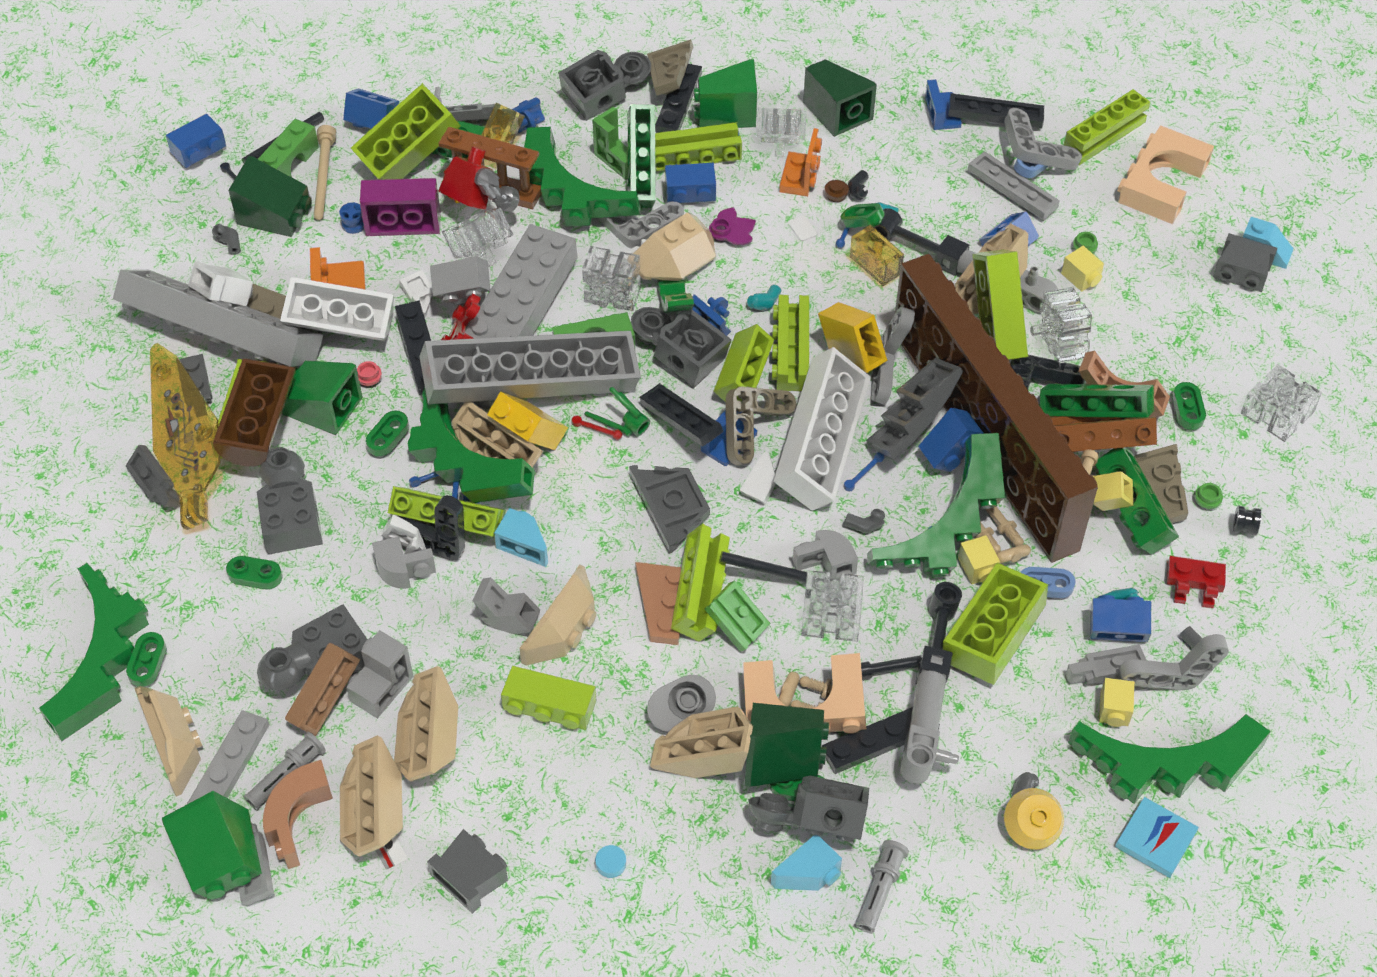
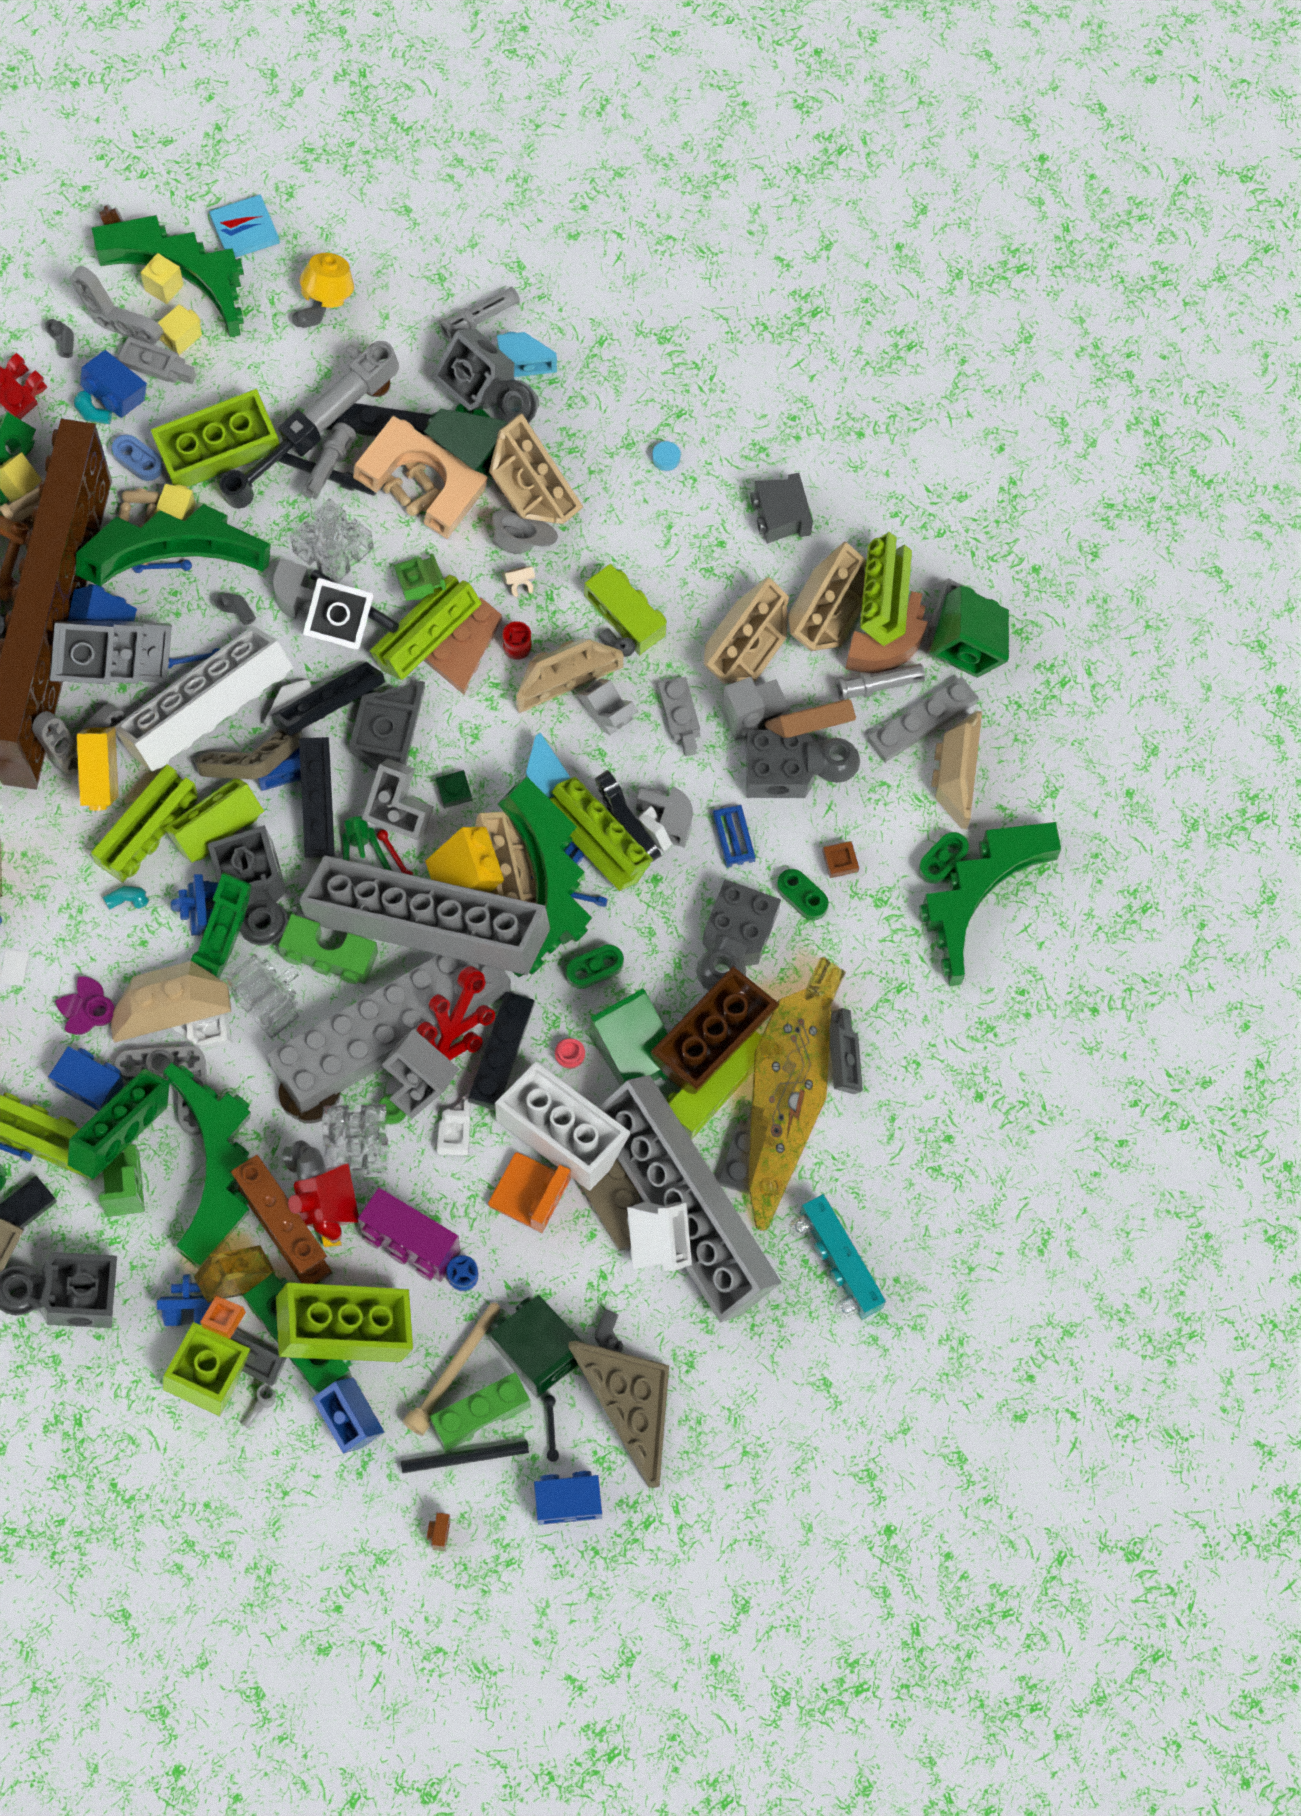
camera: 150 degrees left, 15 degrees up
(81, 354) = (846, 1264): none -> teal piece
(186, 200) = (633, 1398): none -> dark tan tile
(235, 610) = (840, 859): none -> dark orange plate
(271, 93) = (438, 1531): none -> dark orange plate
(318, 832) = (886, 589): none -> lime brick
(352, 598) = (738, 858): none -> blue tile
(445, 649) = (680, 713): none -> light grey hinge
(479, 83) = (205, 1369): none -> lime slope
(485, 100) = (223, 1317): none -> orange tile
(526, 661) = (626, 645): none -> dark grey arm
(587, 493) = (454, 789): none -> dark green plate
(616, 441) = (391, 807): none -> light grey brick
(620, 620) = (520, 634): none -> red wheel
(659, 670) = (519, 576): none -> tan tile
(732, 485) = (328, 698): none -> black plate
(776, 542) = (337, 613): none -> dark grey slope
(895, 676) = (332, 452): none -> light grey pin
(1173, 730) = (162, 278): none -> light yellow brick
(1269, 764) = (110, 215): none -> reddish brown plate

